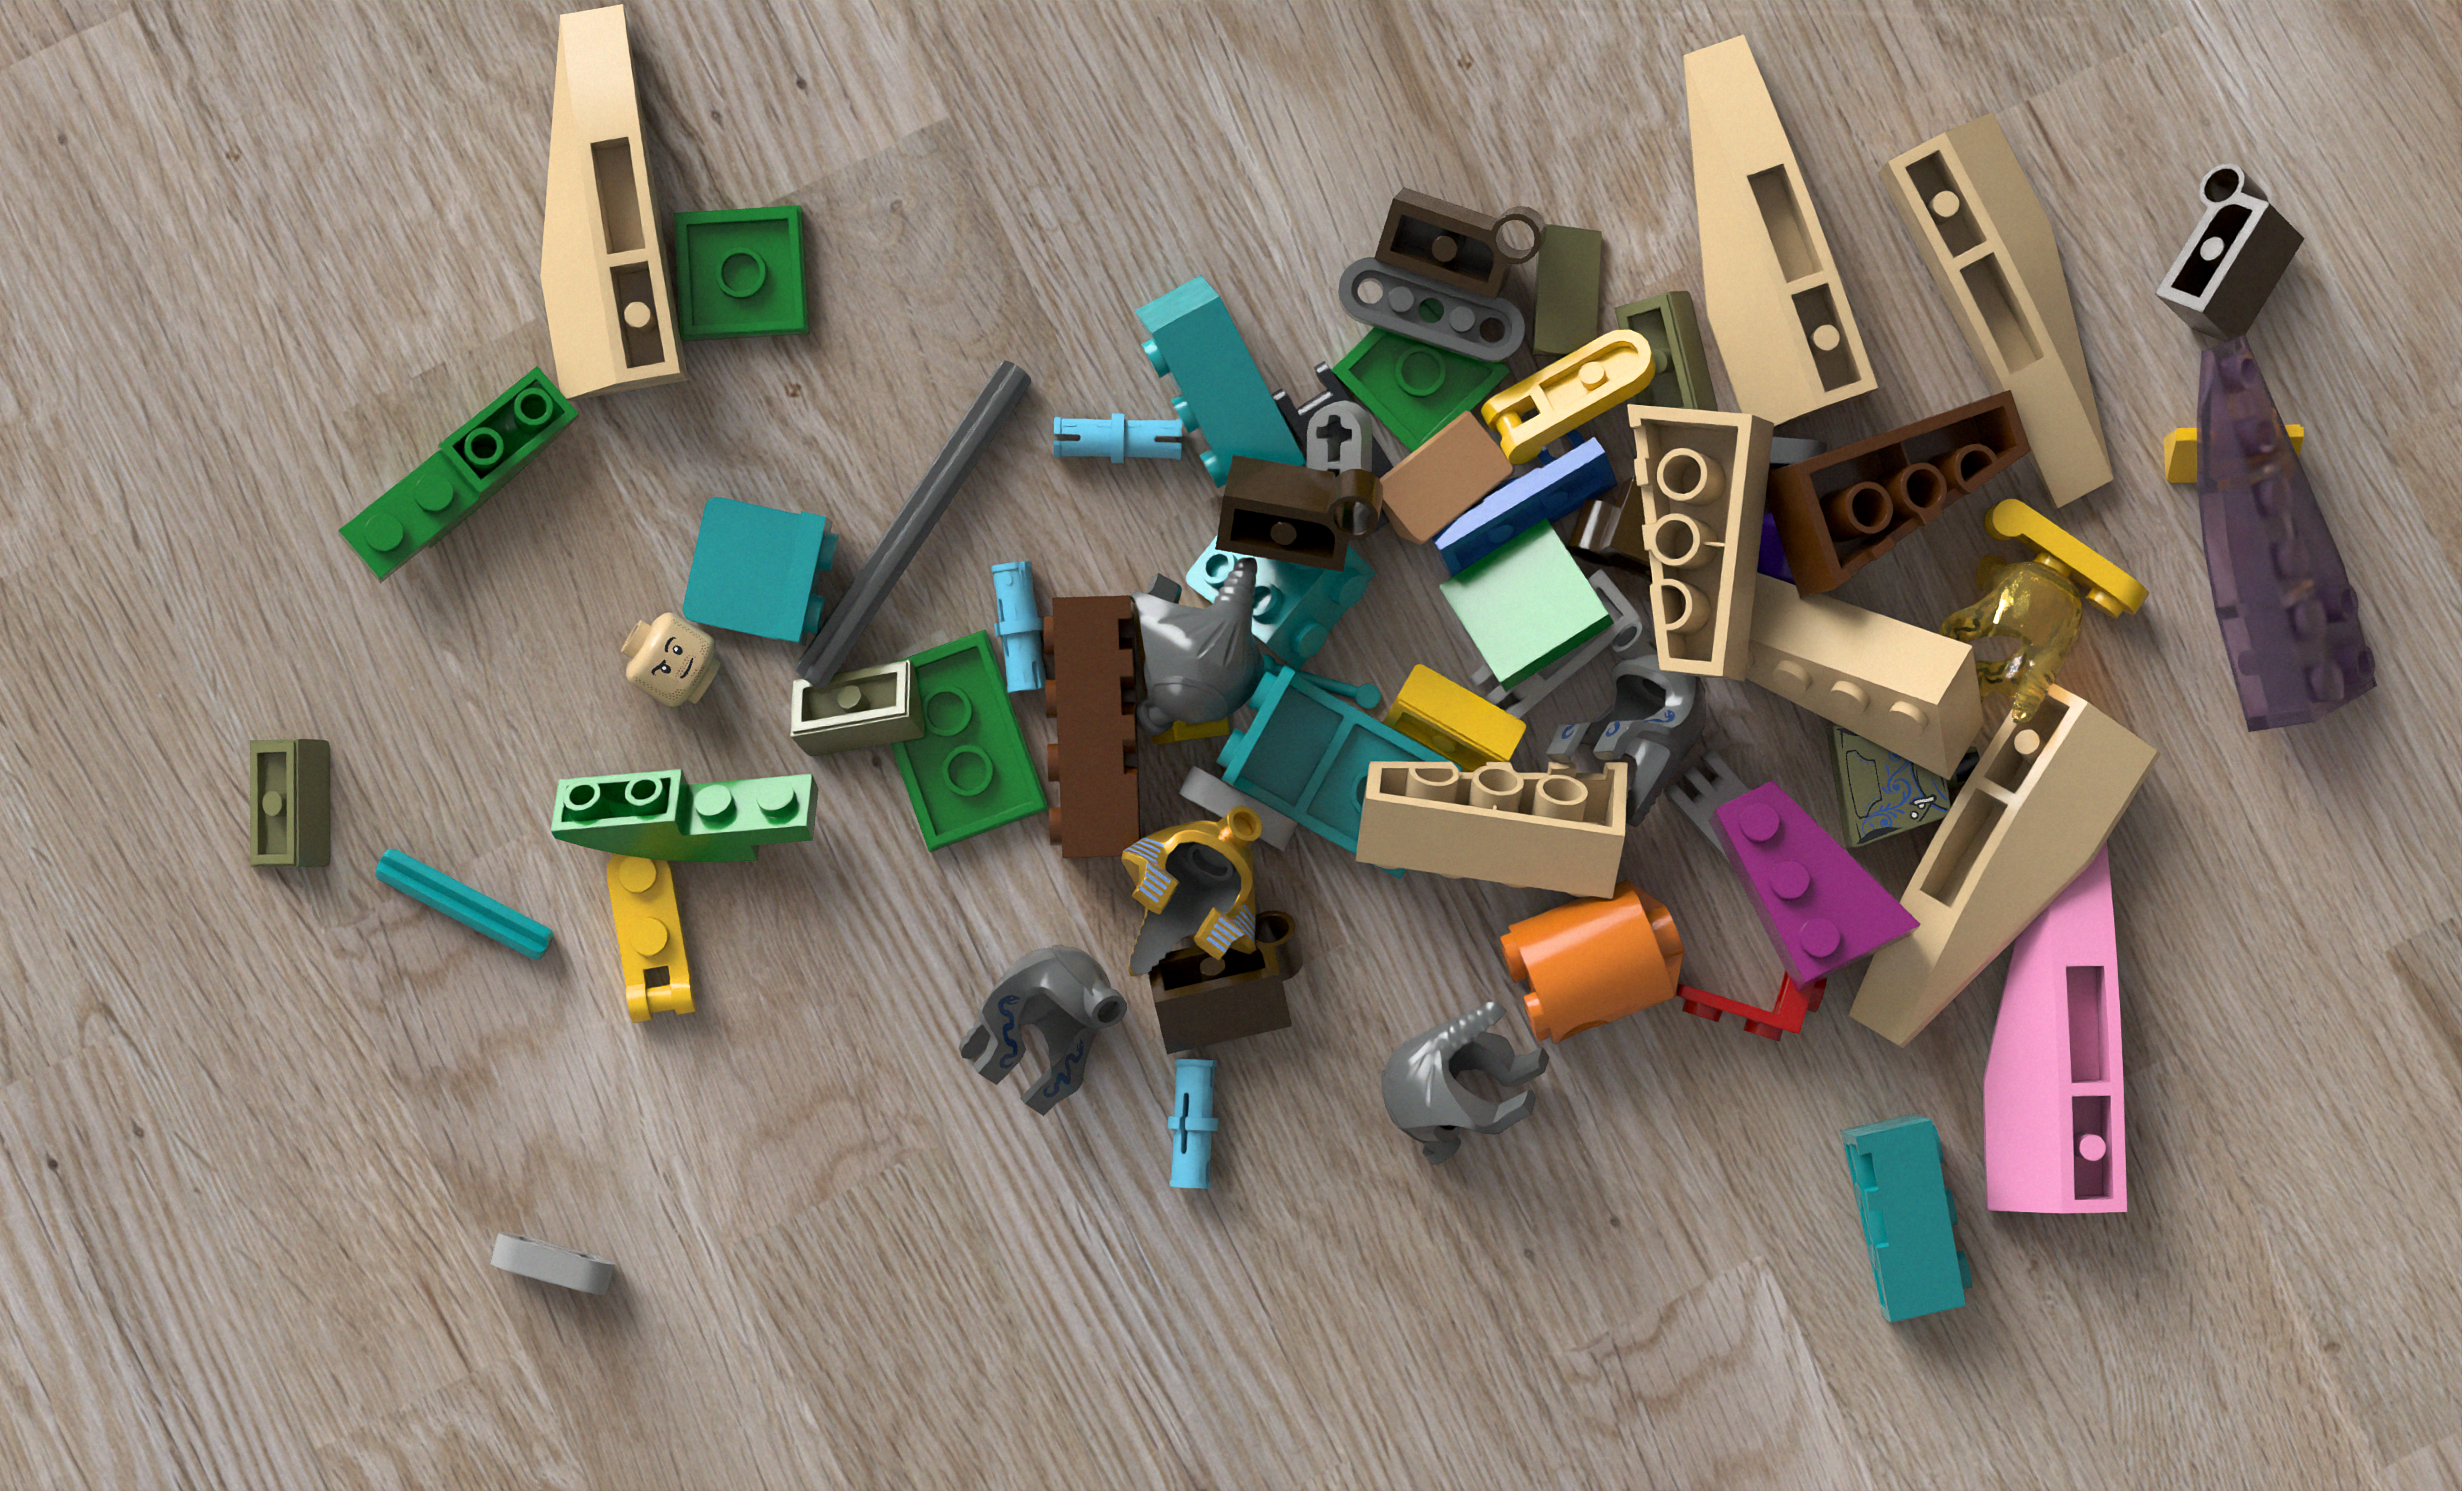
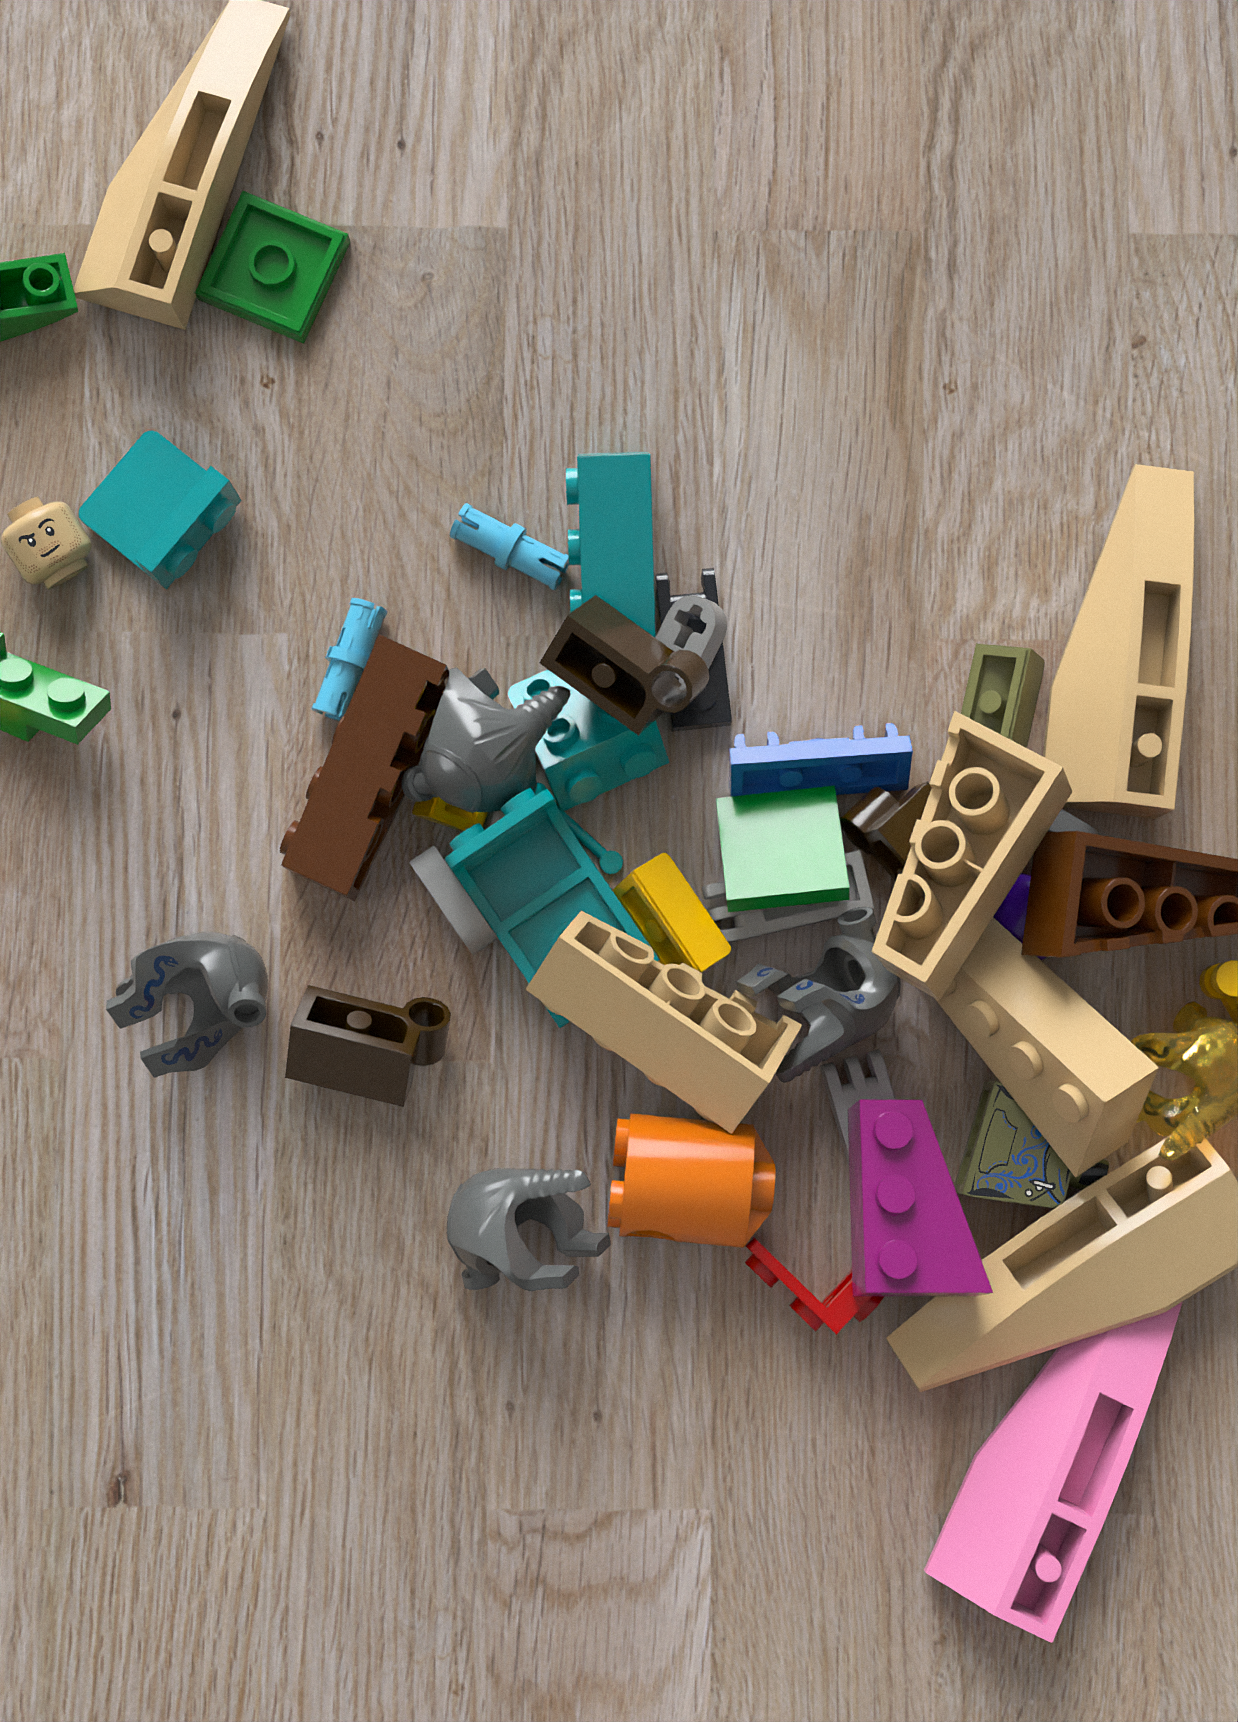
camera: 20 degrees right, 5 degrees down
(858, 710) = (178, 660): olive slope -> none
(912, 524) = (302, 532): dark grey axle -> none
(973, 757) = (250, 729): green tile -> none
(1192, 1123) = (278, 1149): medium azure pin -> none
(1195, 886) = (378, 945): piece -> none
(1406, 291) = (813, 540): dark grey plate -> none
(1414, 384) = (789, 615): green tile -> none
(1442, 479) = (762, 708): medium nougat slope -> none
(1454, 242) = (870, 517): dark brown hinge -> none
(1566, 291) = (943, 609): olive slope -> none
(1570, 393) = (905, 691): yellow plate -> none
(1906, 1216) = (852, 1544): teal wedge -> none

